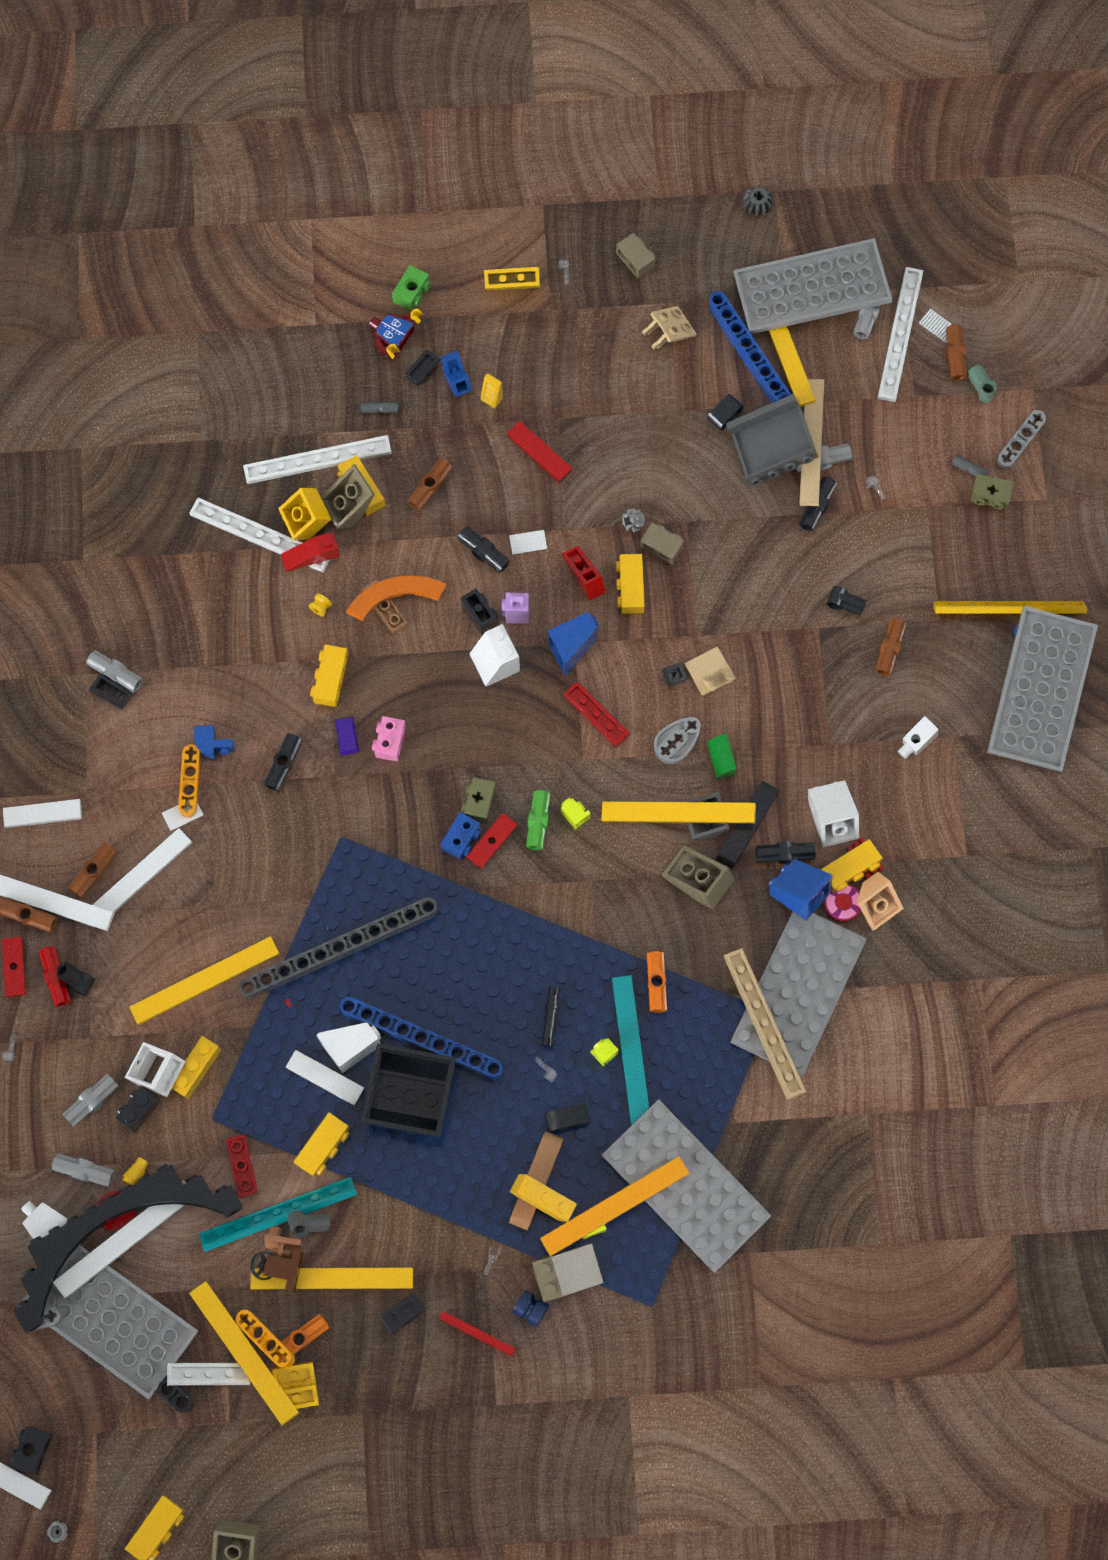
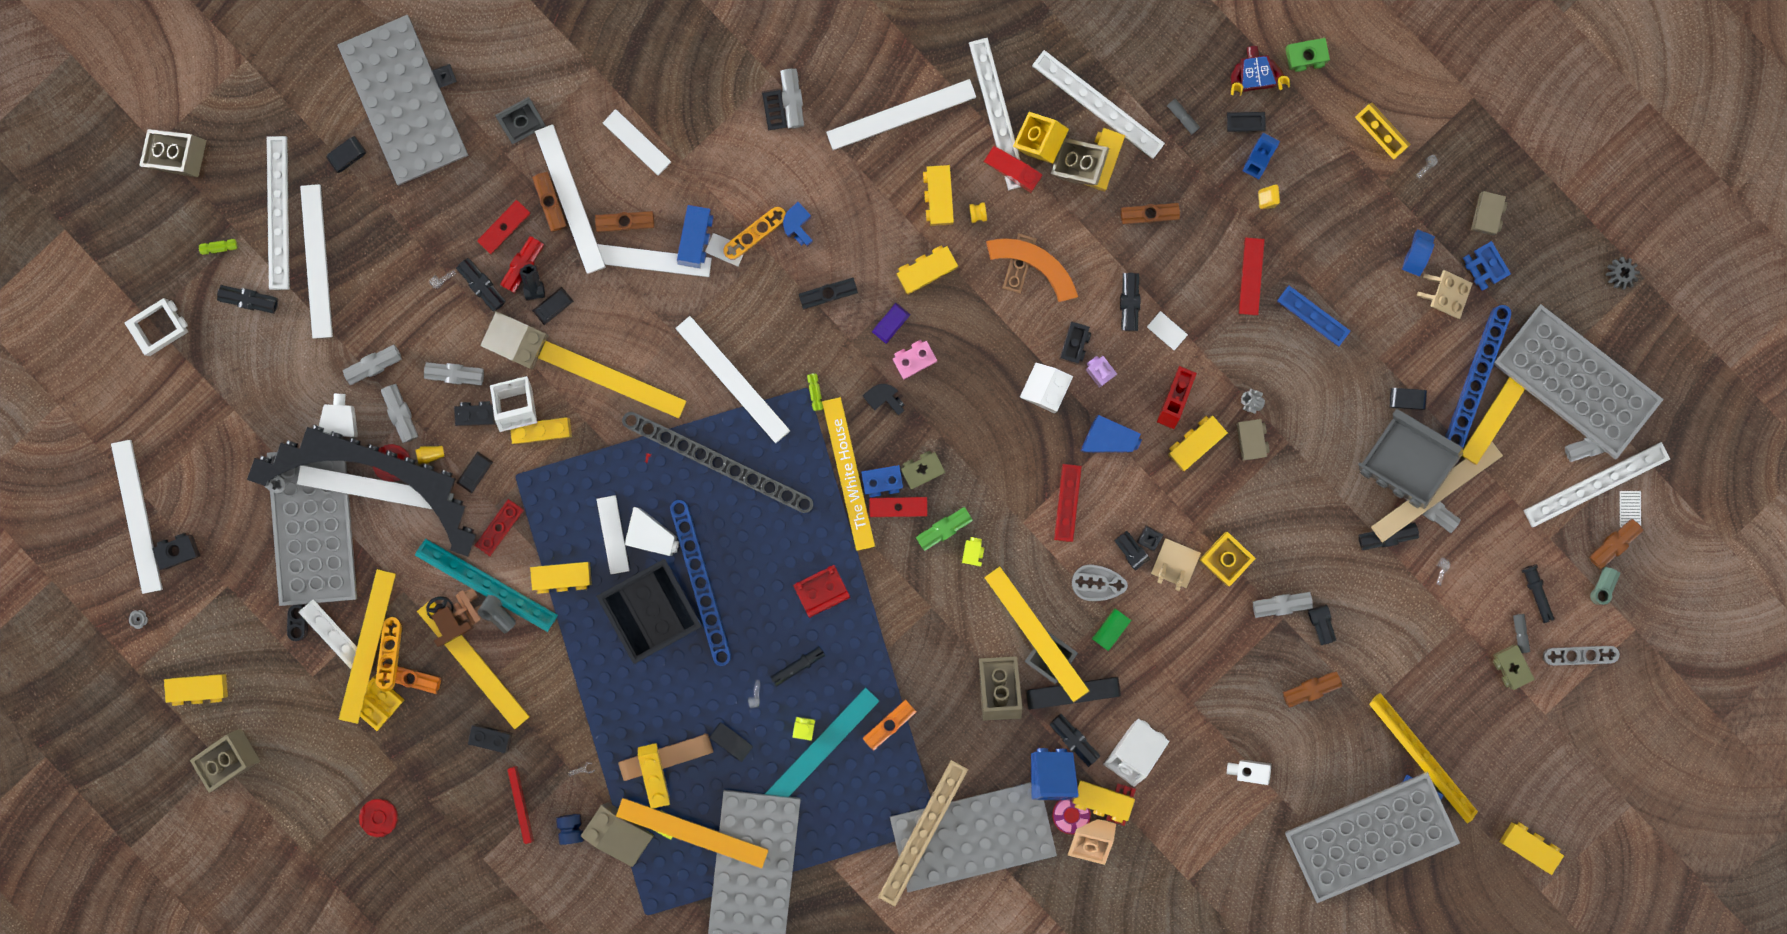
camera: 50 degrees right, 15 degrees up
(26, 1160) = (372, 364): none -> light grey piece
(41, 1021) = (481, 284): none -> black piece
(107, 980) = (553, 305): none -> black tile
(107, 1030) = (514, 340): none -> slope
(152, 825) = (694, 236): none -> blue brick
(181, 1150) = (474, 472): none -> black tile
(198, 604) = (901, 114): none -> white tile
(282, 622) = (939, 195): none -> yellow brick
(285, 886) = (732, 379): none -> white tile
(349, 833) = (815, 392): none -> lime axle
(390, 1464) = (378, 817): none -> red tile
(394, 784) = (884, 393): none -> black brick
(434, 859) = (848, 473): none -> yellow tile
(507, 951) = (821, 591): none -> red piece
(606, 430) = (1313, 316): none -> blue plate
(624, 322) = (1419, 253): none -> blue brick
(675, 281) = (1490, 261): none -> blue plate
(678, 695) = (1134, 554): none -> black piece
(738, 629) = (1227, 559): none -> yellow brick
(806, 618) = (1282, 604): none -> light grey piece
(940, 429) = (1535, 584): none -> black pin

